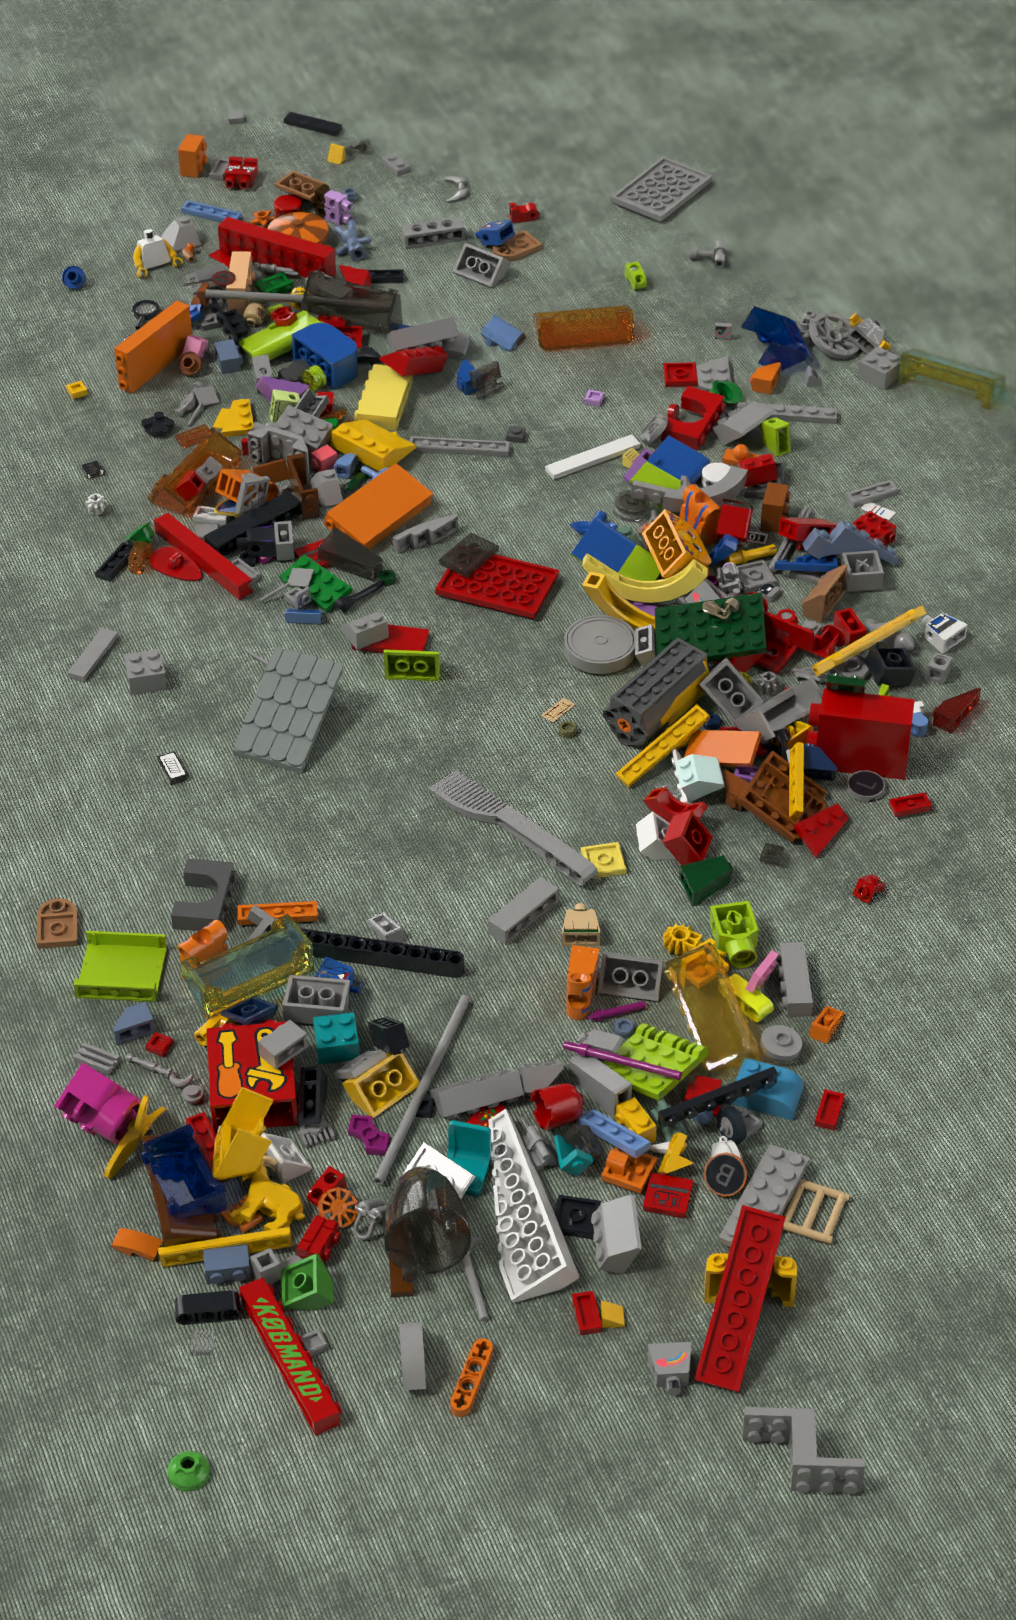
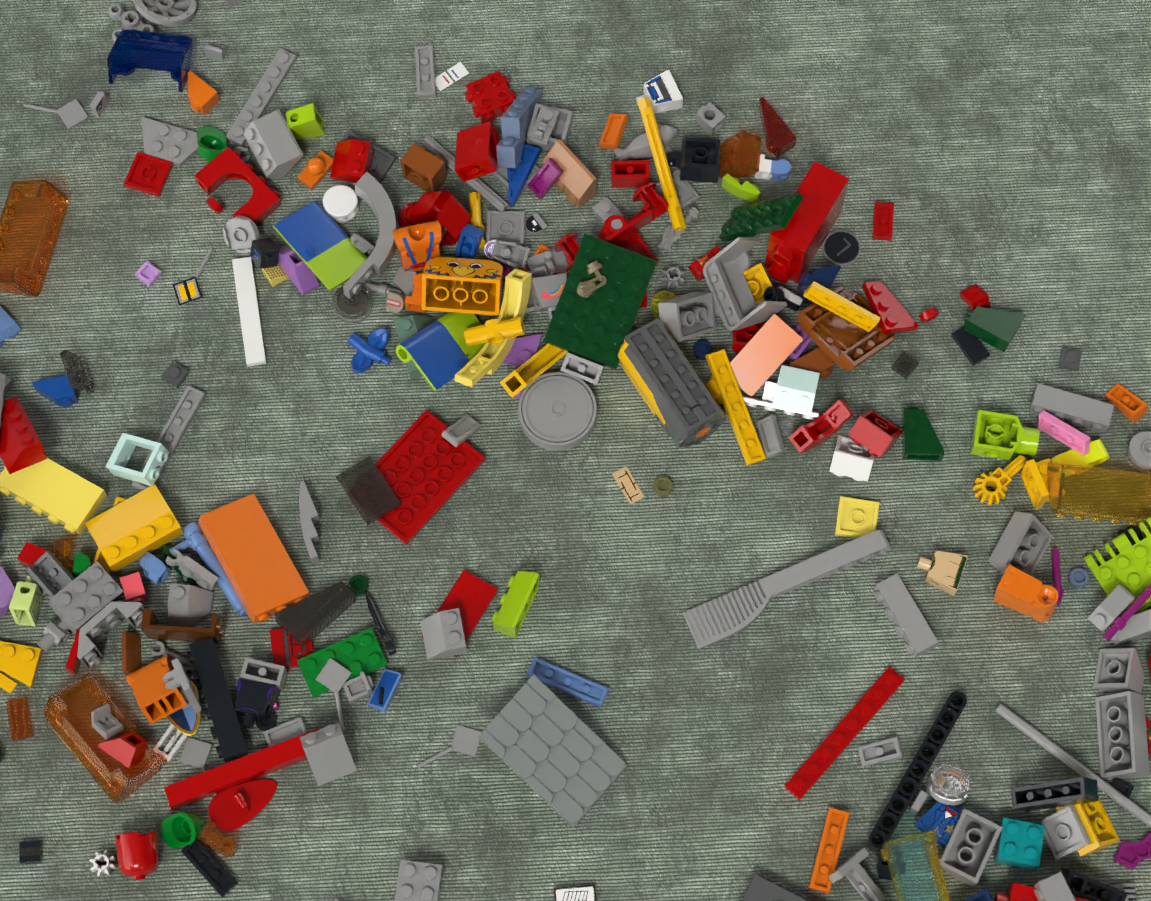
camera: 70 degrees left, 25 degrees up
(109, 515) = (137, 854): none -> red cylinder
(231, 586) = (328, 754): none -> light grey brick
(347, 958) = (918, 802): none -> light grey tile
(352, 479) = (192, 569): none -> light grey plate
(359, 717) = (568, 682): none -> medium blue tile
(371, 972) = (949, 784): none -> clear piece
(393, 900) = (844, 733): none -> red plate
(430, 426) = (123, 452): none -> light aqua window
(551, 593) = (461, 430): none -> light grey tile
(593, 422) = (188, 290): none -> piece
(644, 441) = (264, 253): none -> black brick
(644, 575) = (494, 331): none -> yellow piece
(650, 781) = (770, 436): none -> light grey tile
(706, 323) = (70, 113): none -> light grey piece
(812, 579) = (545, 178): none -> magenta tile
(820, 896) = (970, 346): none -> black tile
(833, 857) = (929, 315): none -> red tile
(848, 904) = (994, 326): none -> dark green slope
(848, 971) = (1069, 359): none -> dark grey plate
(856, 557) = (544, 126): none -> light grey plate
(886, 613) = (613, 131): none -> orange tile
(920, 688) = (740, 155): none -> clear orange slope

